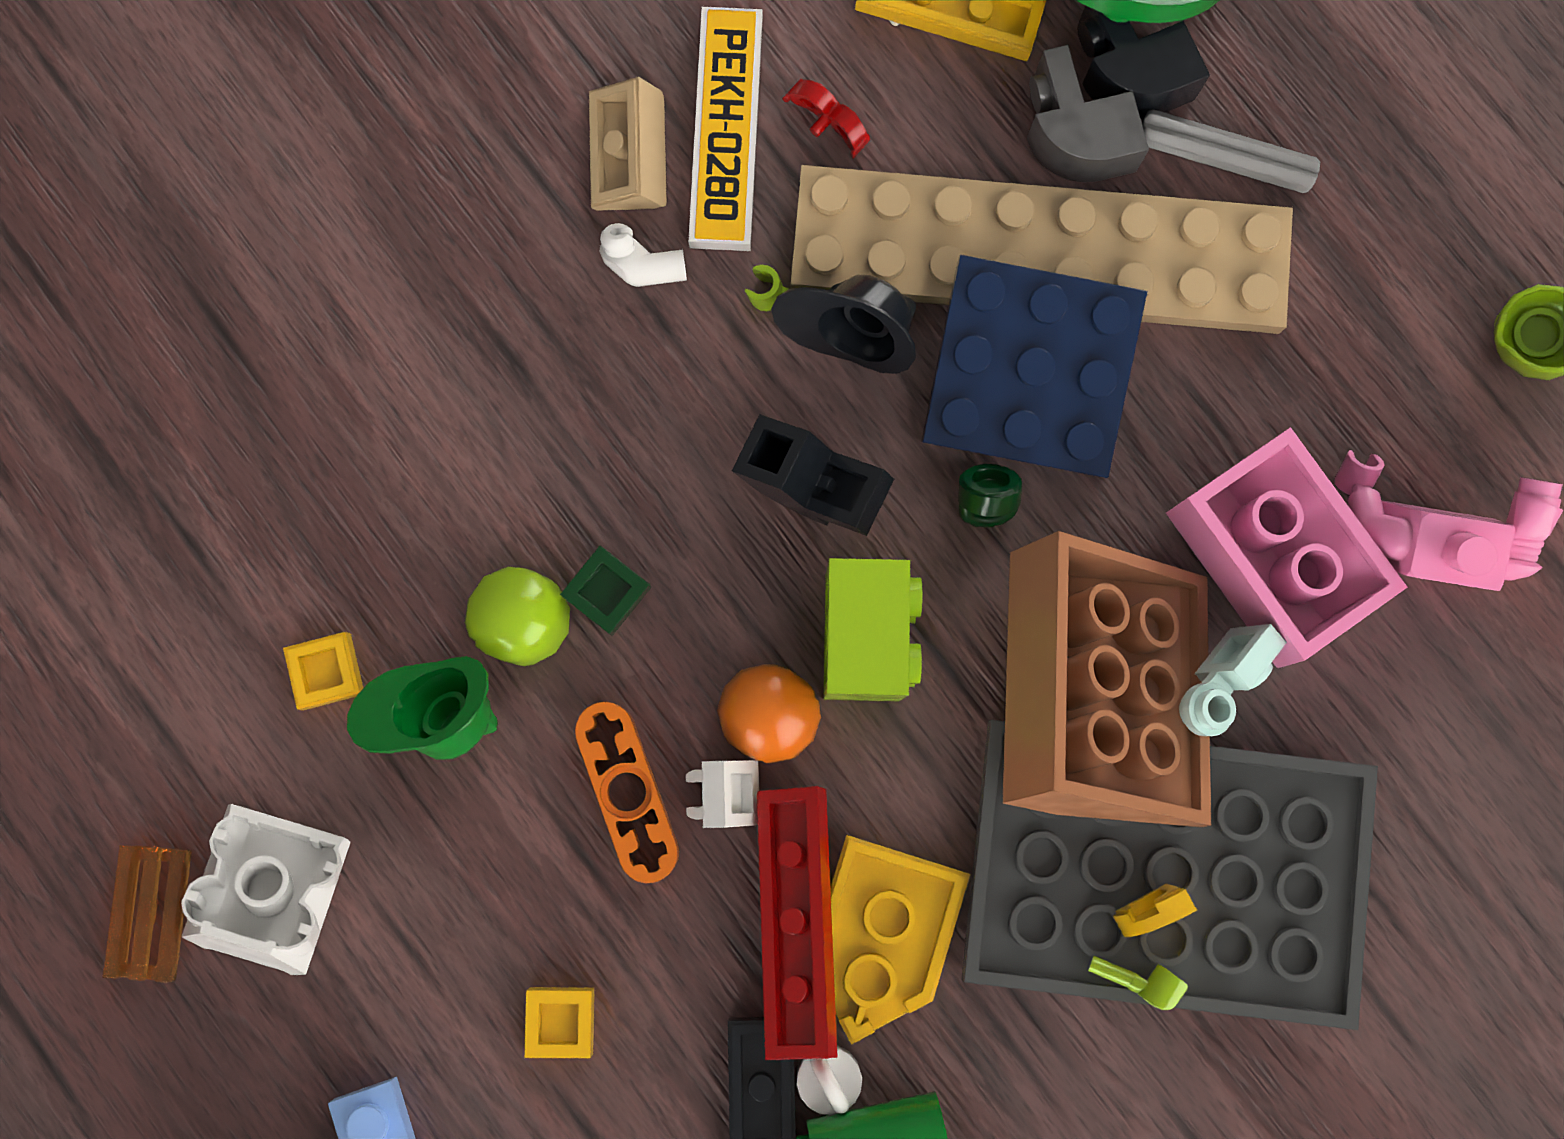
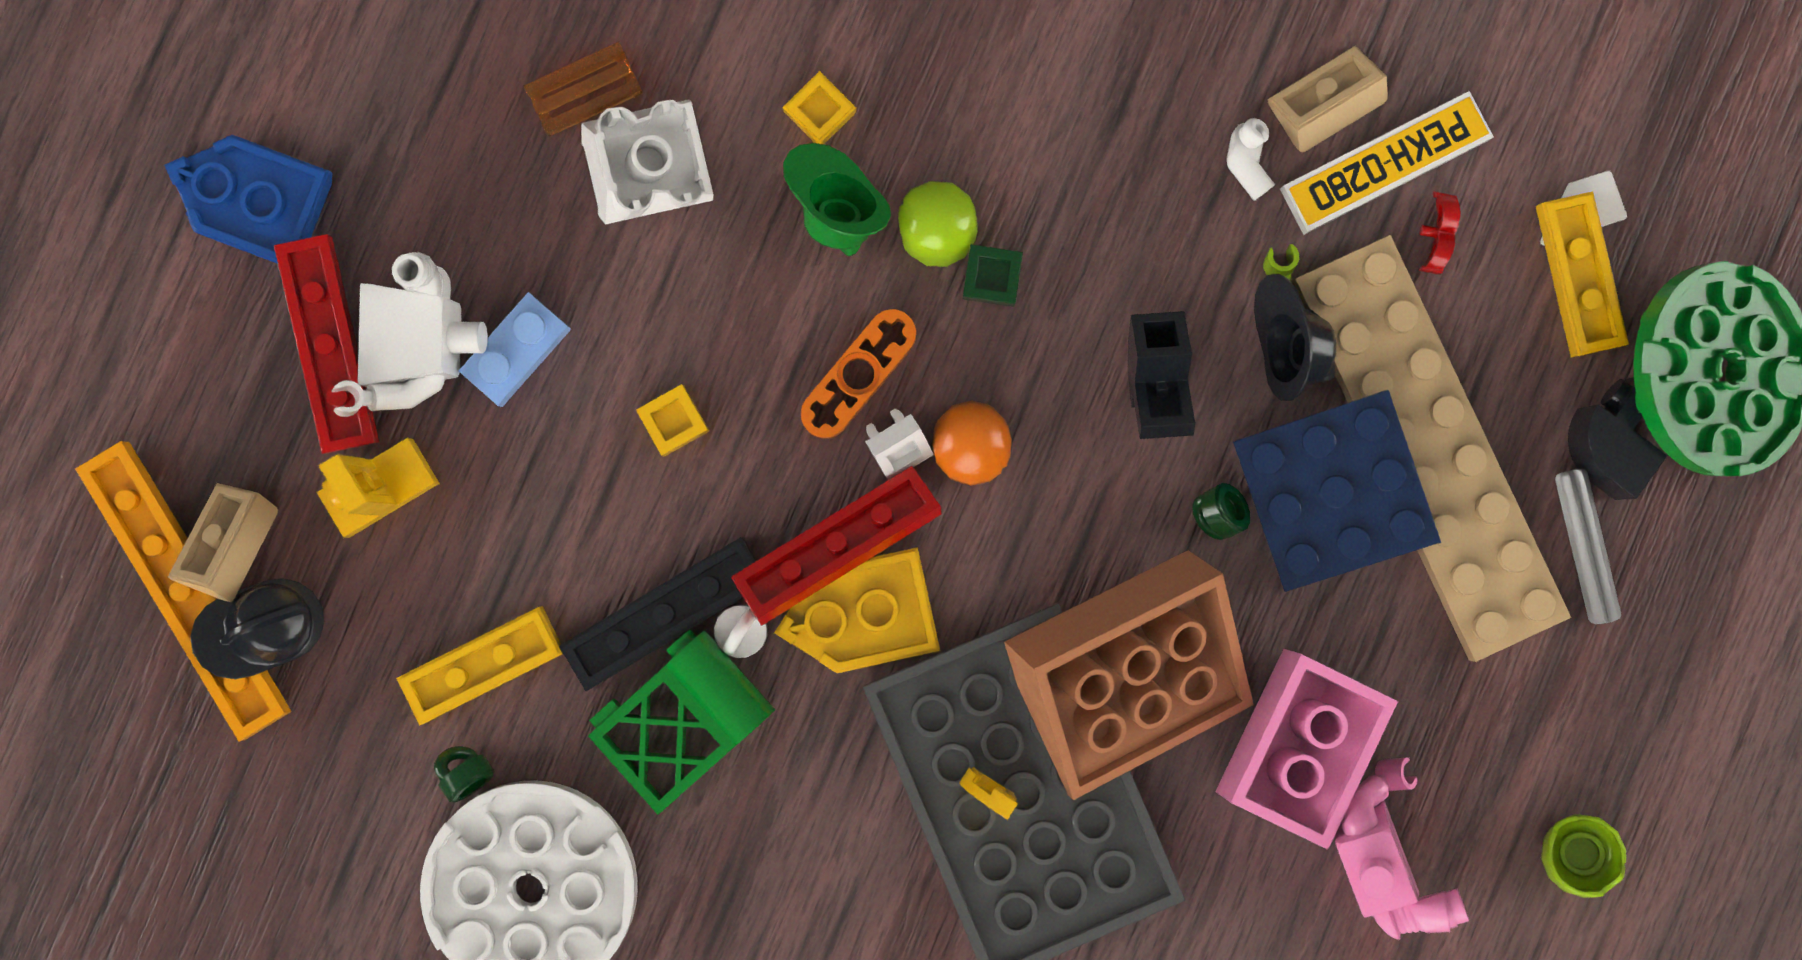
camera: 60 degrees right, 5 degrees up
(869, 630) = (1071, 477): lime brick -> none
(1081, 138) = (1530, 425): flat silver brick -> none
(1160, 989) = (936, 827): lime hand -> none
(1236, 663) = (1199, 756): light aqua plate -> none

